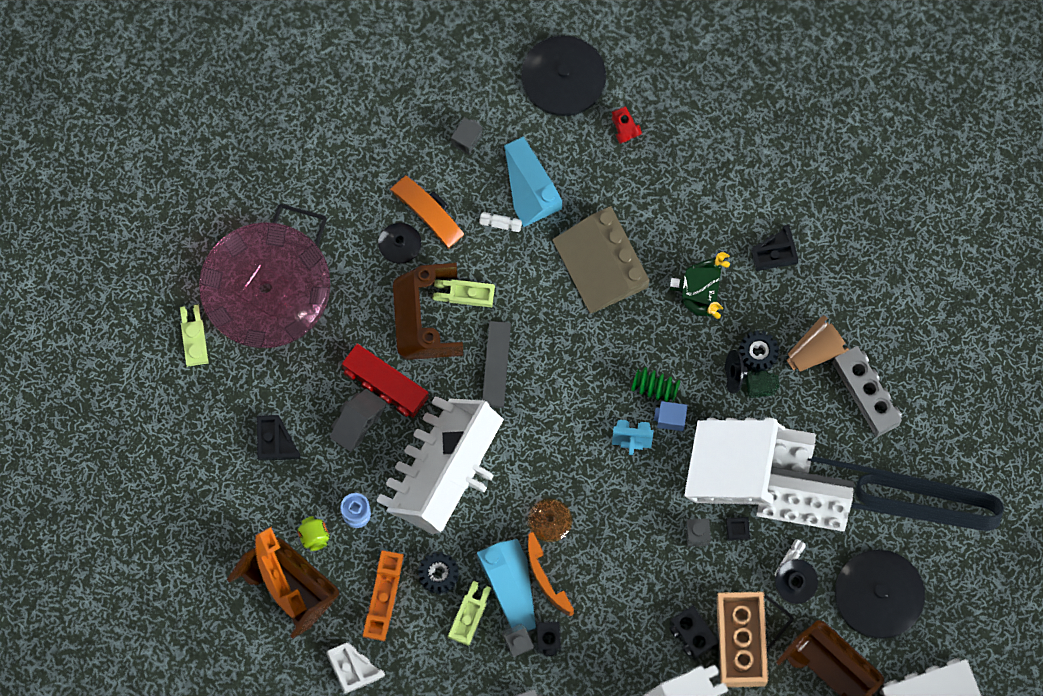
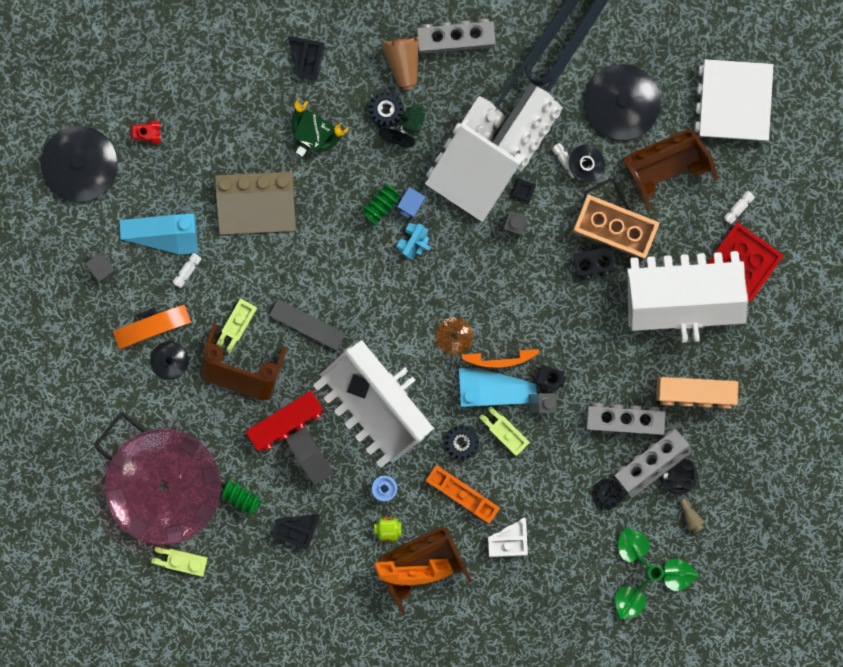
camera: 70 degrees left, 15 degrees up
(284, 368) = (241, 498): none -> green piece

